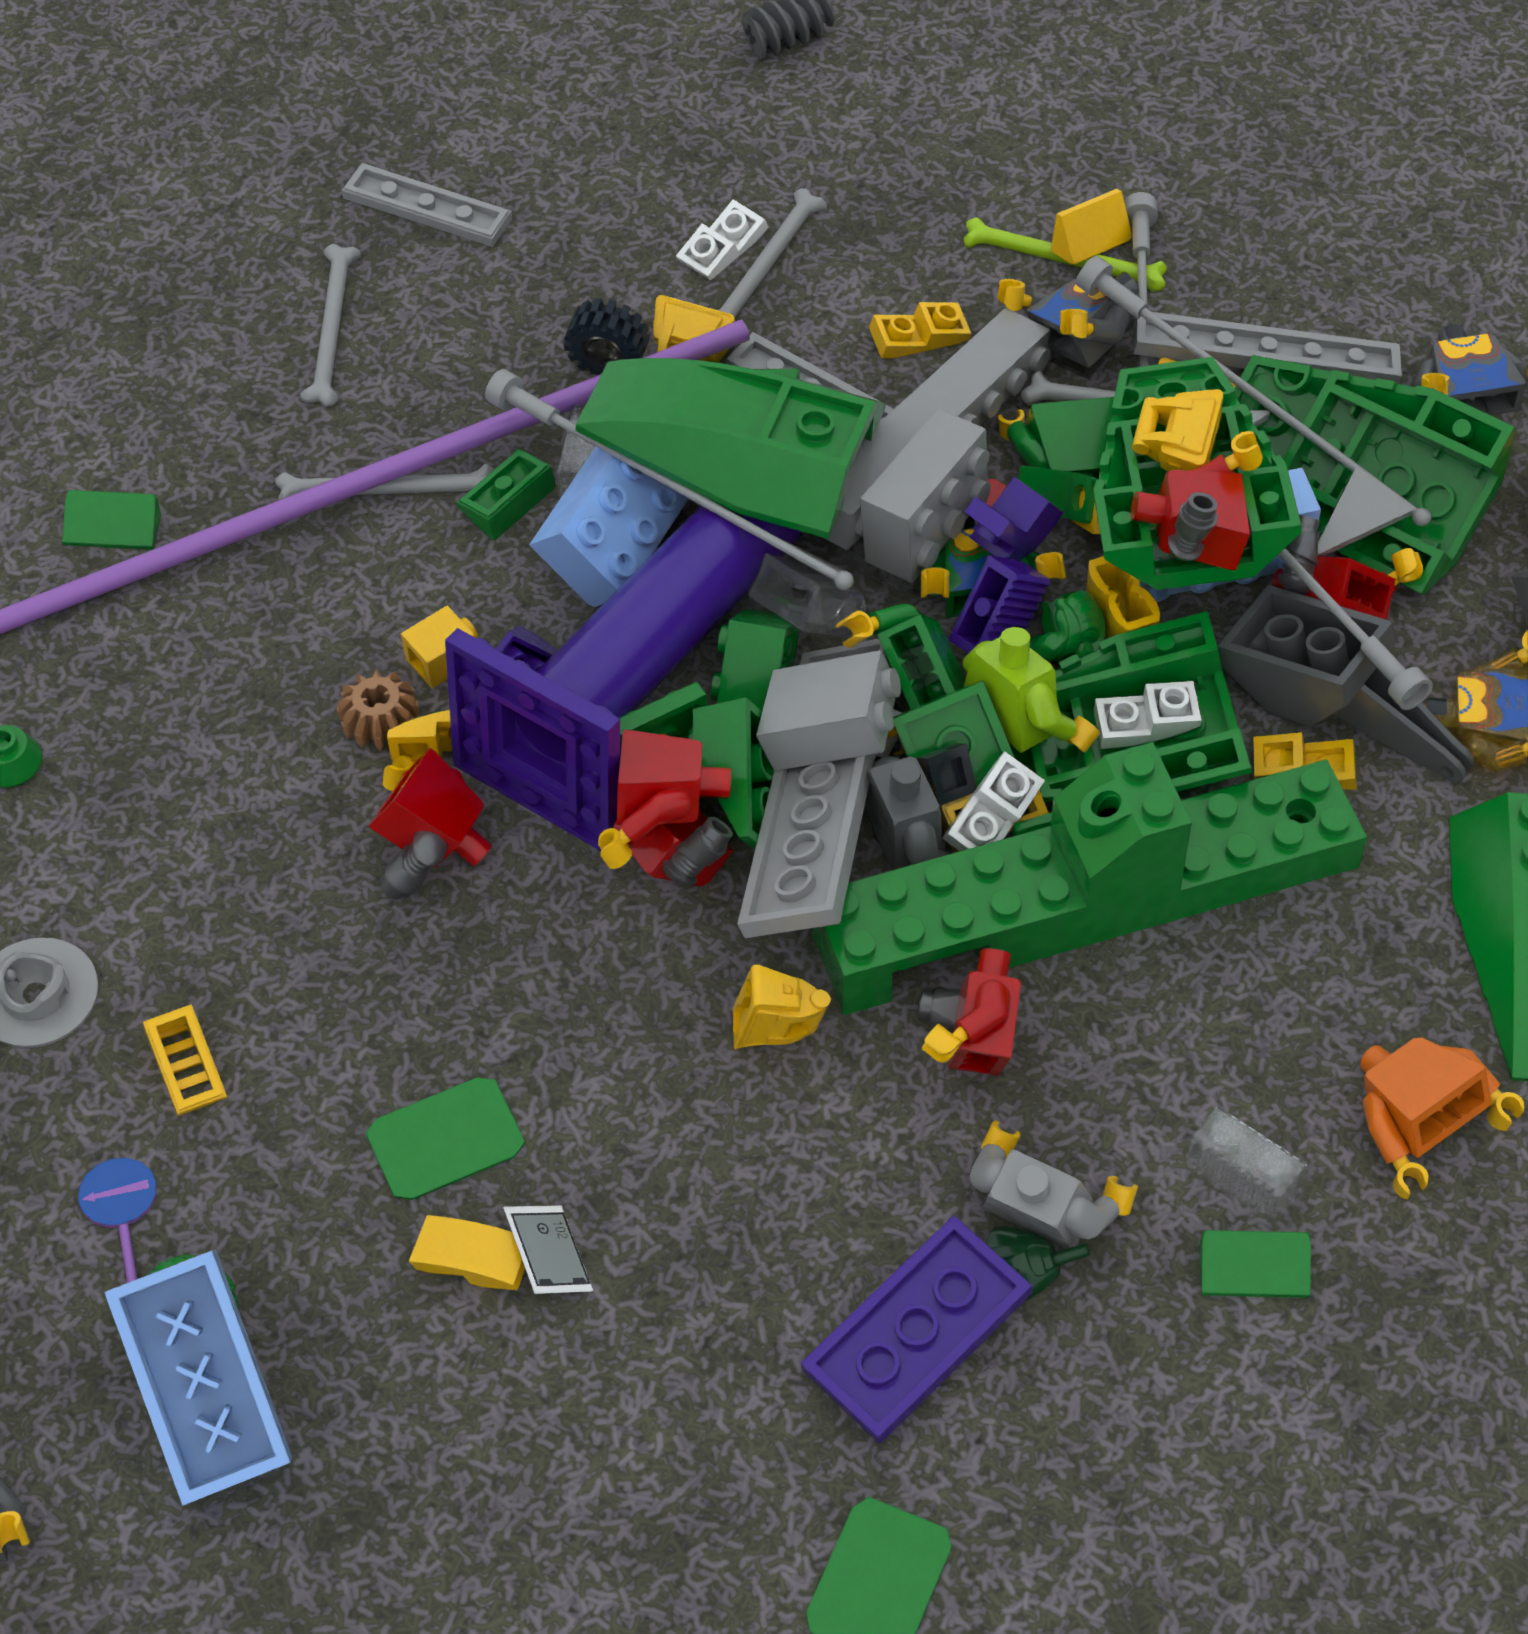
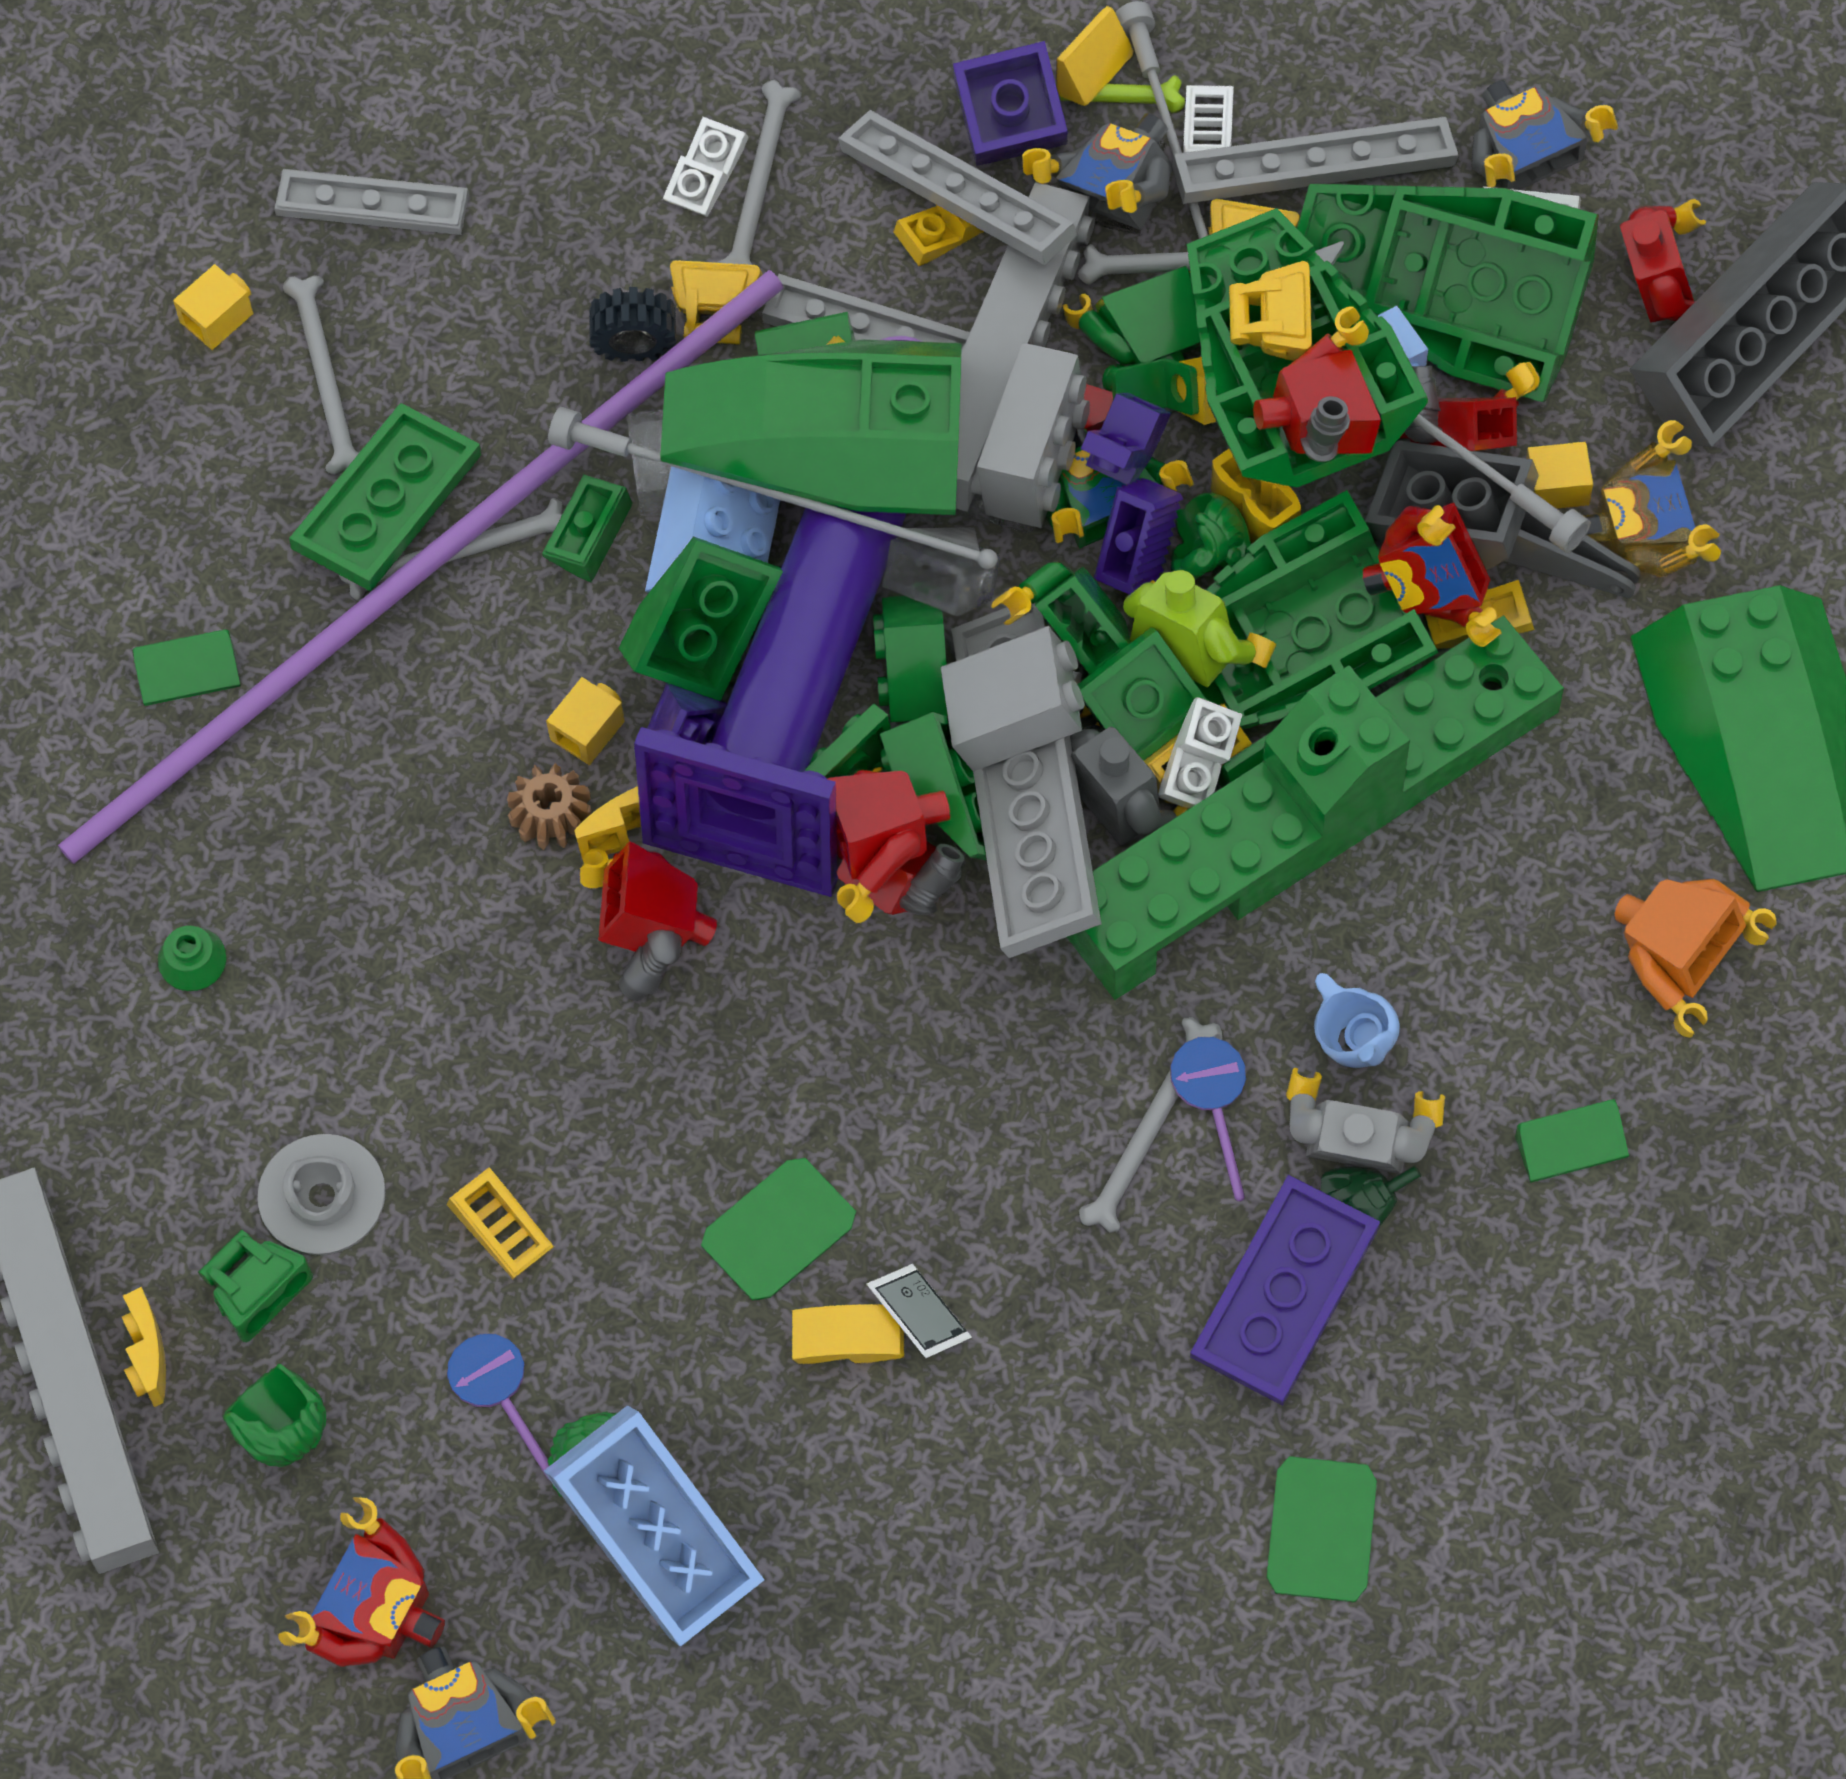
camera: 15 degrees left, 10 degrees up
(258, 248) = (214, 306): none -> yellow brick
(338, 425) = (385, 497): none -> green plate
(567, 570) = (699, 618): none -> green slope
(765, 1203) = (1104, 1208): none -> light grey piece
(776, 1009) = (1053, 1017): yellow piece -> none
(908, 1107) = (1210, 1077): none -> blue piece
(935, 295) = (957, 187): none -> light grey plate
(949, 772) = (1147, 730): black plate -> none
(981, 1017) = (1255, 970): red torso -> none
(1003, 239) = (1010, 103): none -> dark purple brick
(1081, 1091) = (1368, 1019): none -> light blue hair
(1156, 715) = (1317, 612): white slope -> none
(1175, 305) = (1191, 121): none -> white slope
(1245, 1165) = (1538, 1048): clear brick -> none
(1269, 696) = (1435, 570): none -> torso
(1366, 501) = (1466, 318): light grey piece -> none
(1426, 650) = (1563, 474): none -> yellow brick

